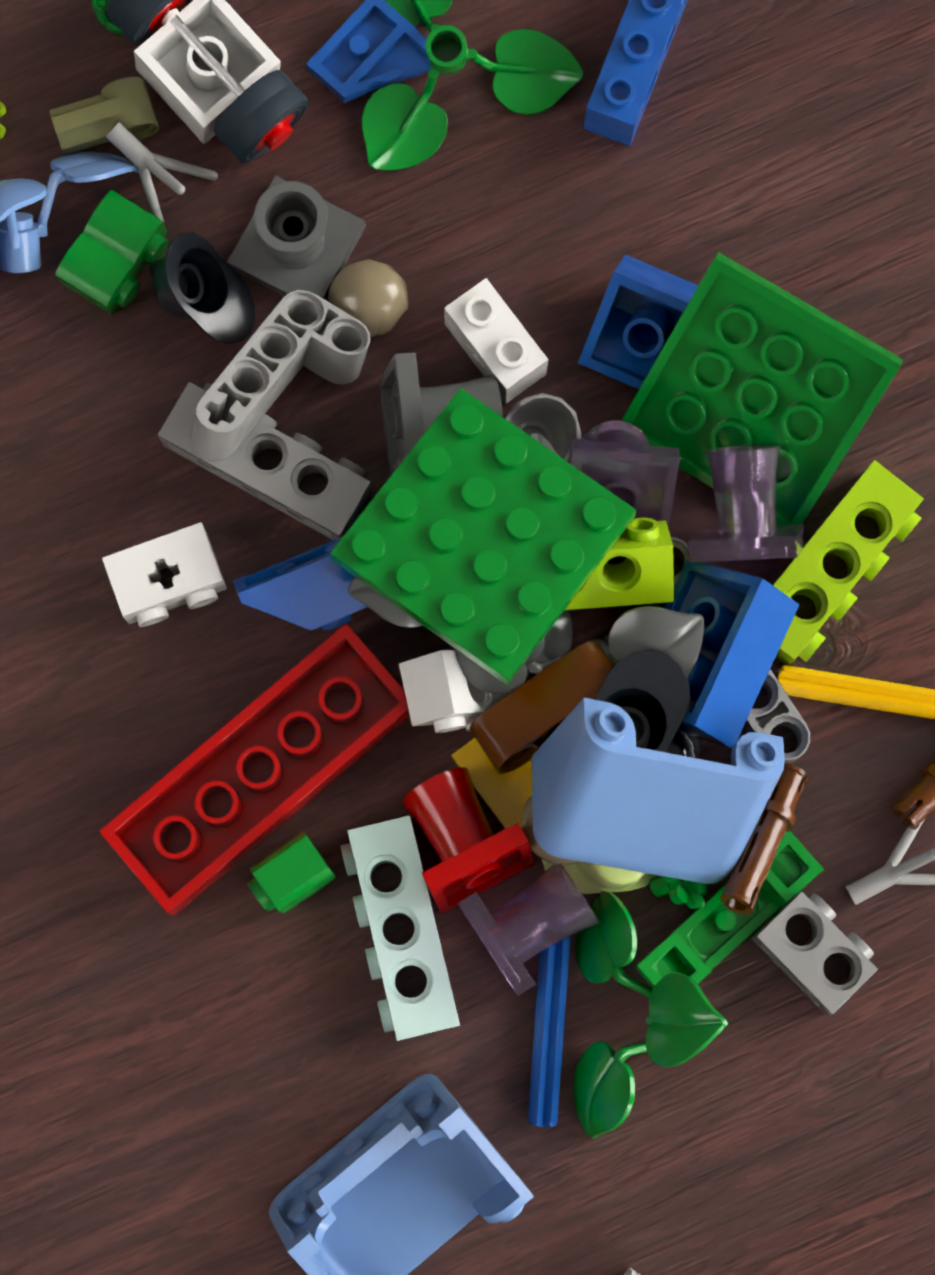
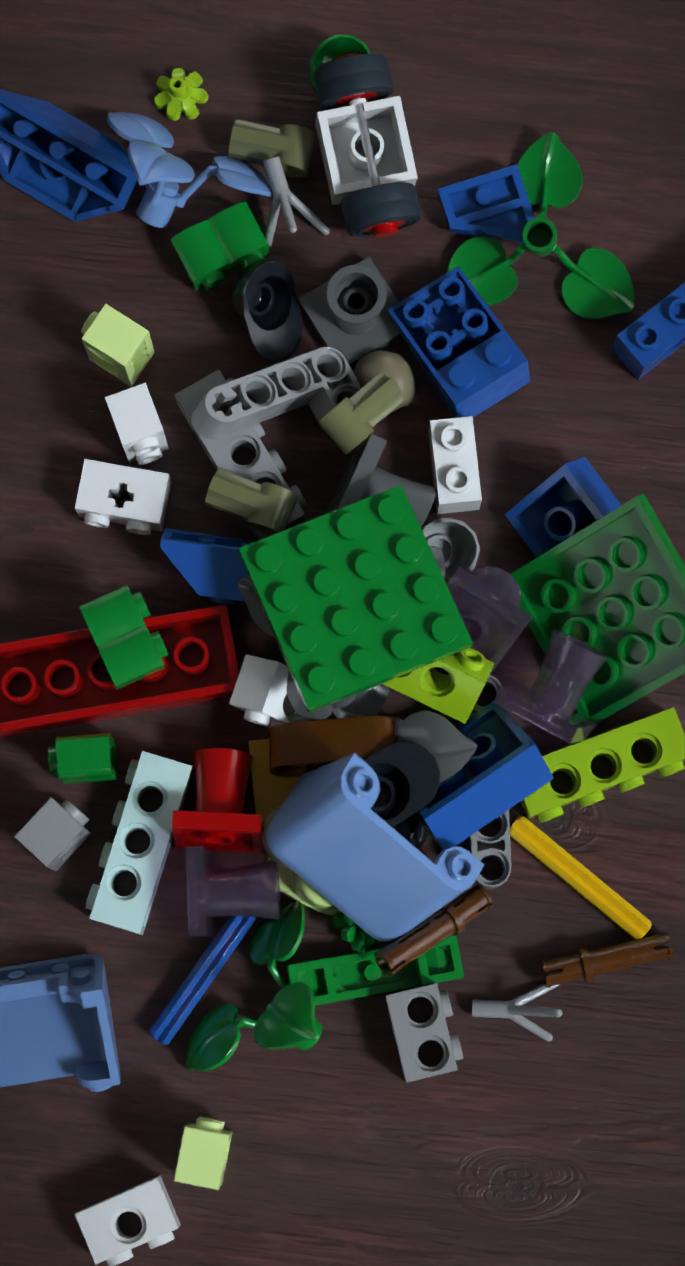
camera: 30 degrees right, 0 degrees up
(64, 416) = (117, 344): none -> yellowish green brick
(137, 488) = (137, 424): none -> white brick
(259, 720) = (124, 637): none -> green brick
(306, 971) = (54, 833): none -> light grey brick
(323, 497) = (261, 505): none -> olive piece
(364, 349) = (356, 416): none -> olive piece
(427, 212) = (460, 345): none -> blue slope
(667, 1216) = (203, 1153): none -> yellowish green brick

